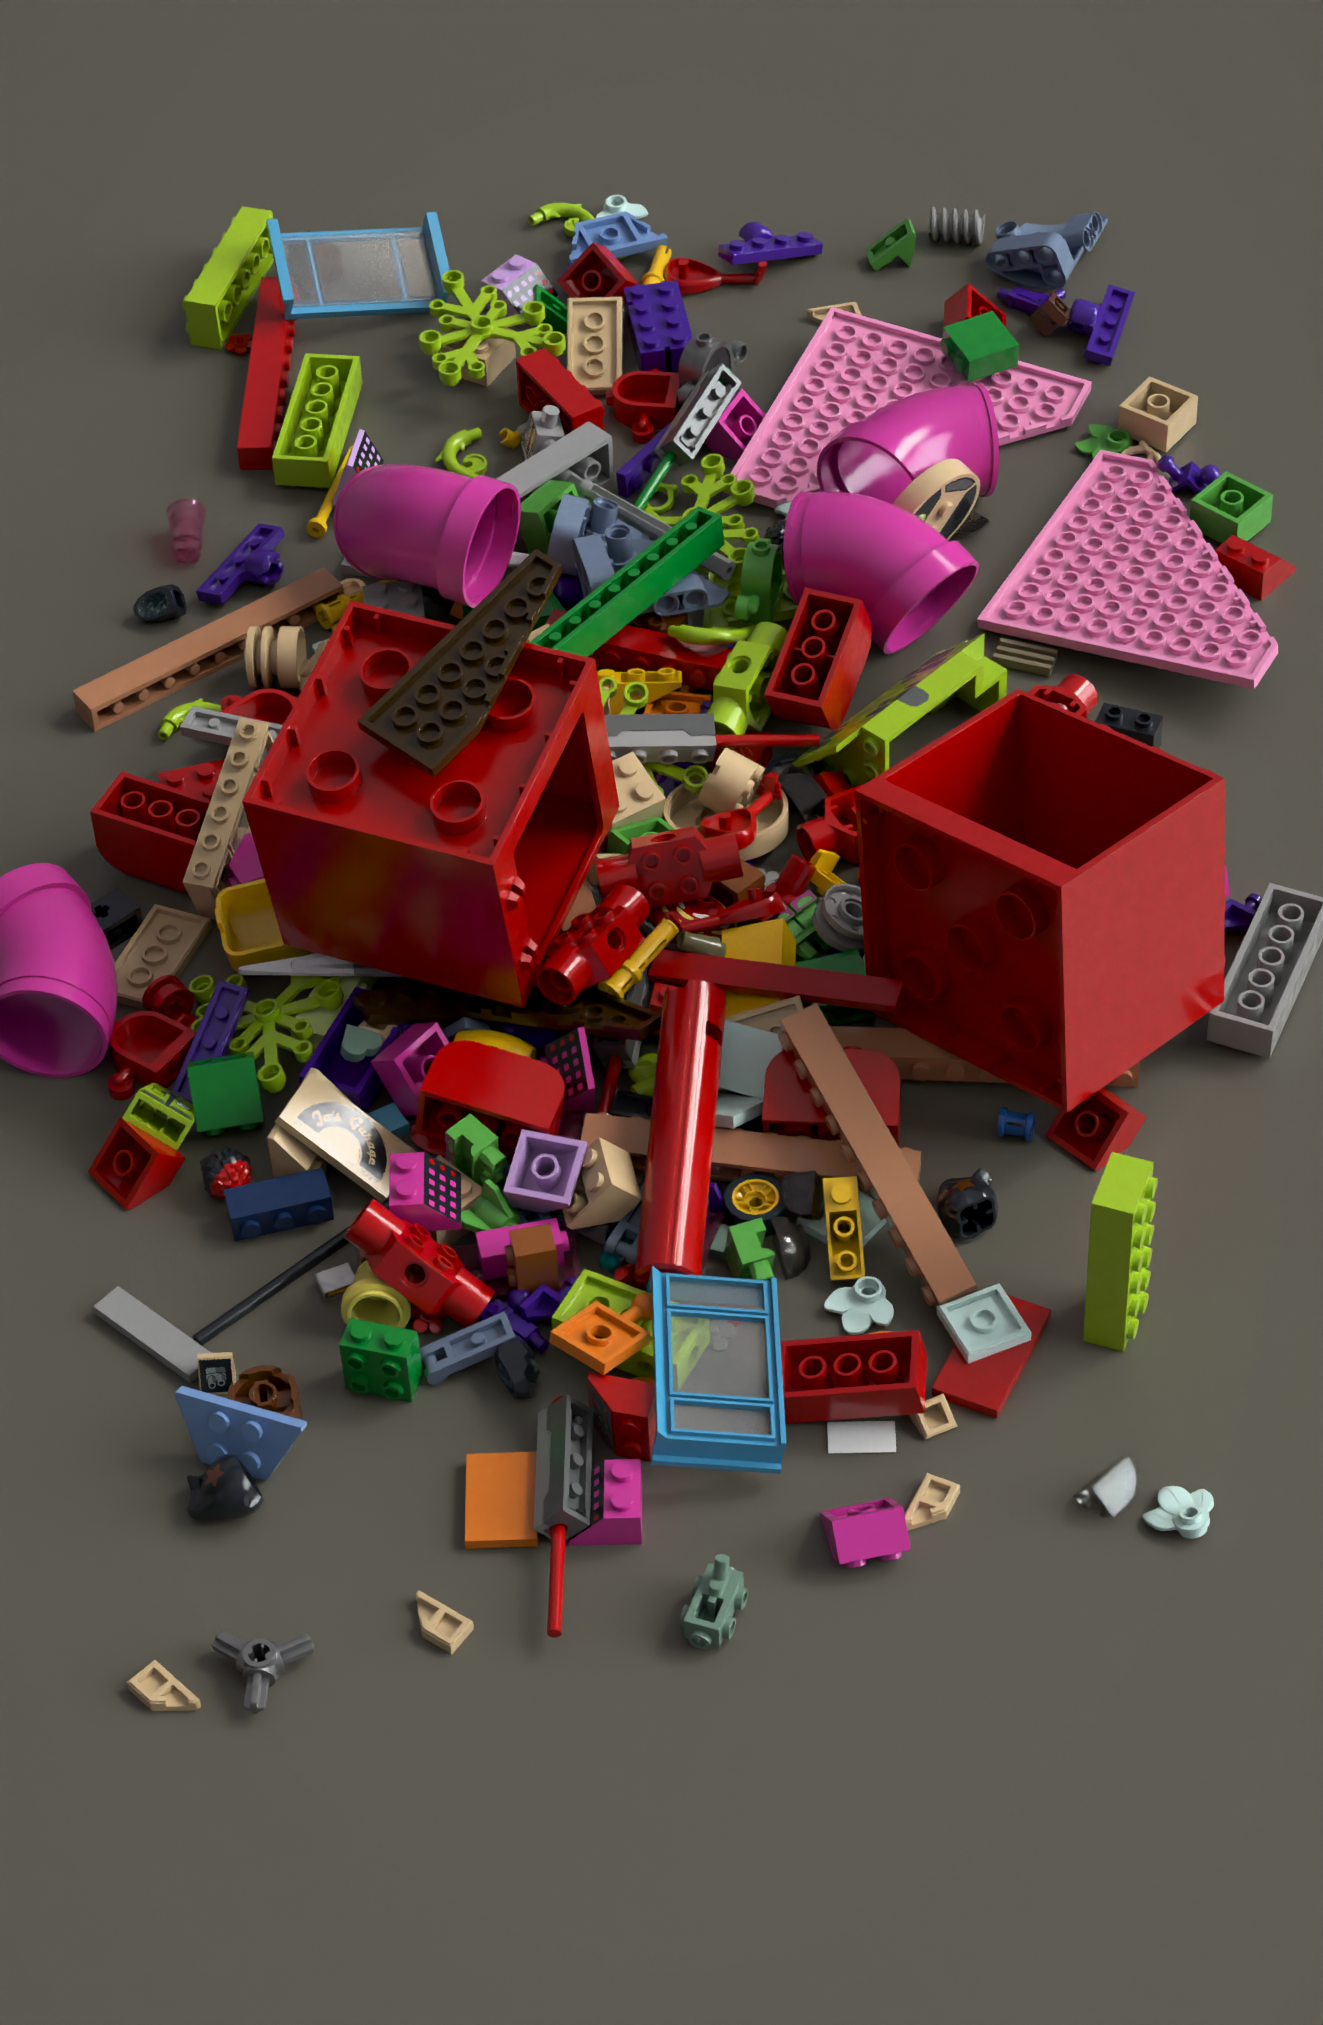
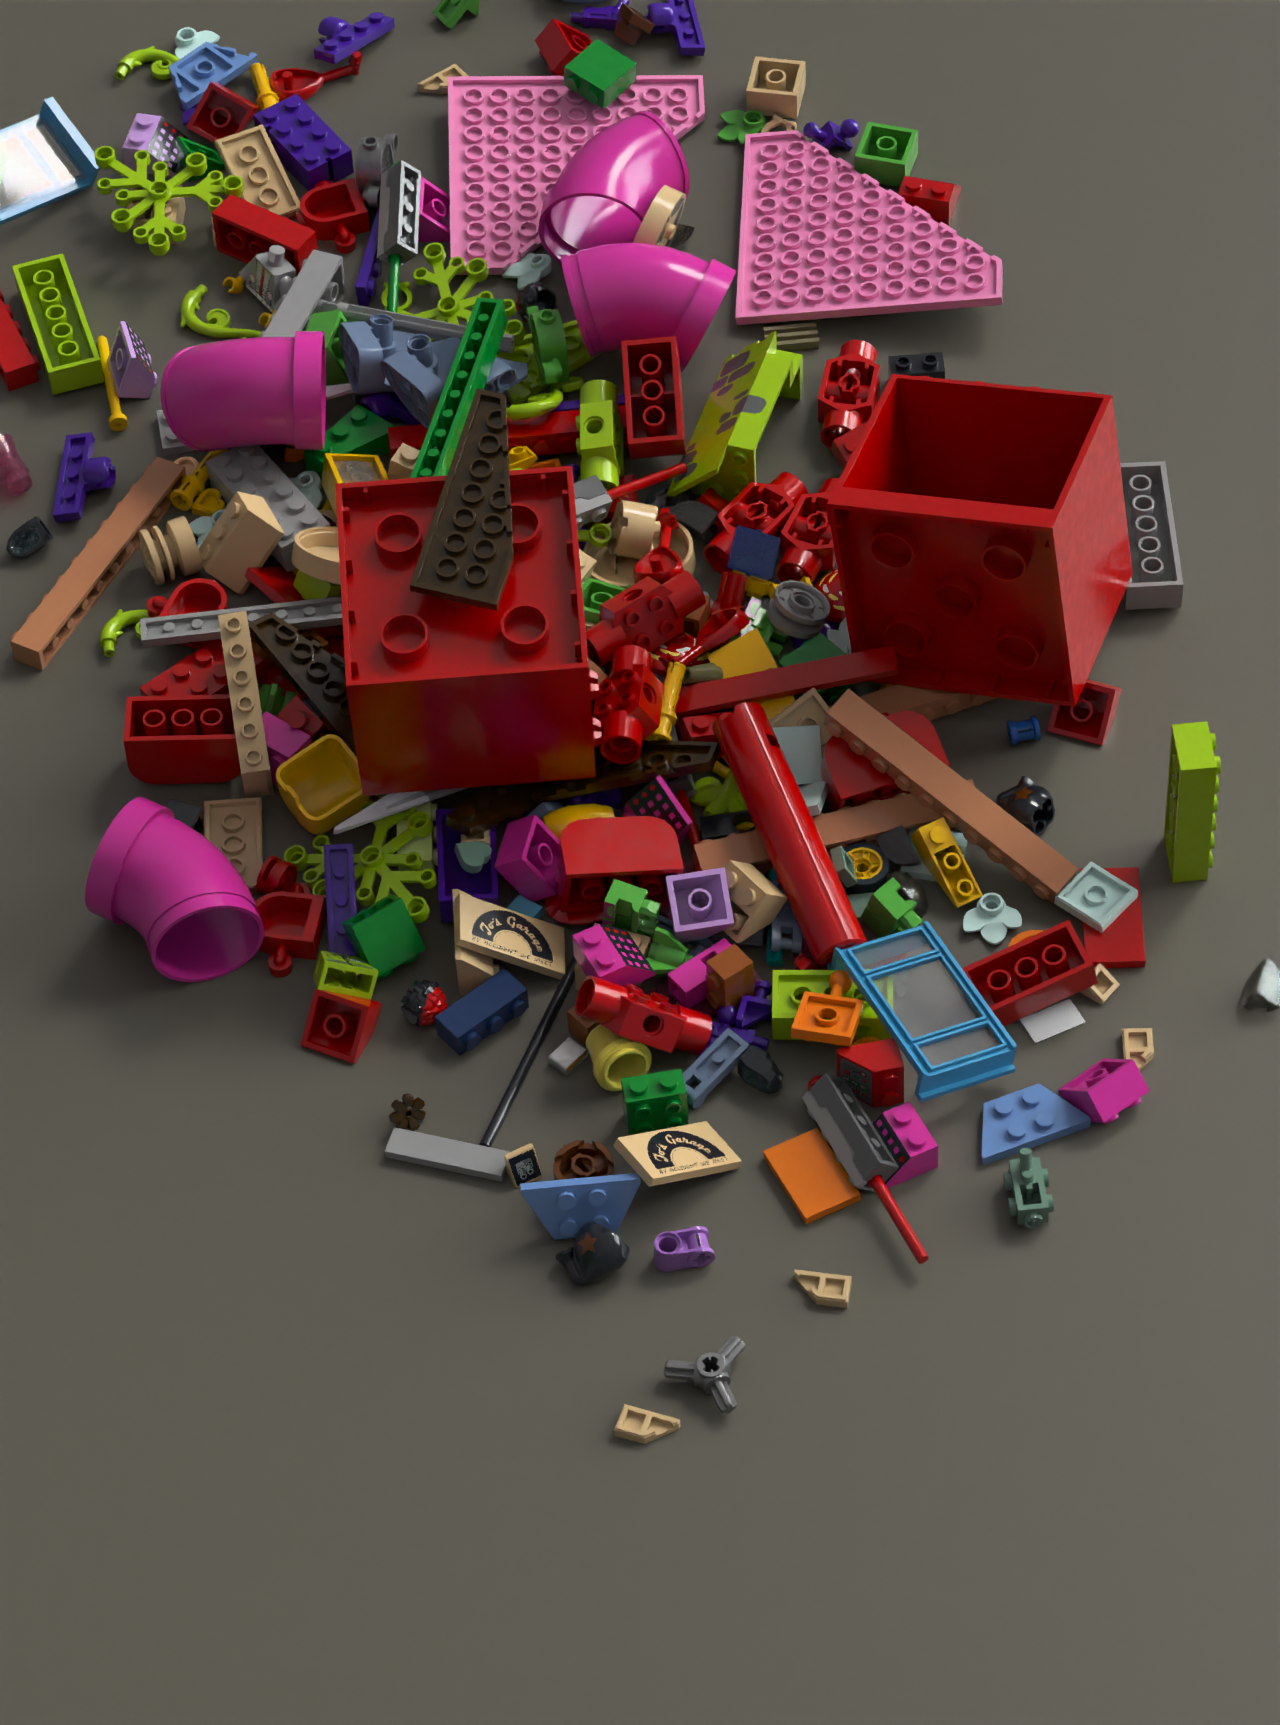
camera: 25 degrees left, 5 degrees up
(139, 1276) = (407, 1112): none -> dark brown plant
(316, 1521) = (683, 1249): none -> medium lavender piece
(367, 1419) = (677, 1153): none -> tan tile
(426, 1321) = (661, 1059): red plant -> none
(727, 1191) = (844, 866): none -> sand green tile
(763, 1532) = (1026, 1121): none -> medium blue wing
(834, 847) = (753, 552): none -> clear blue piece

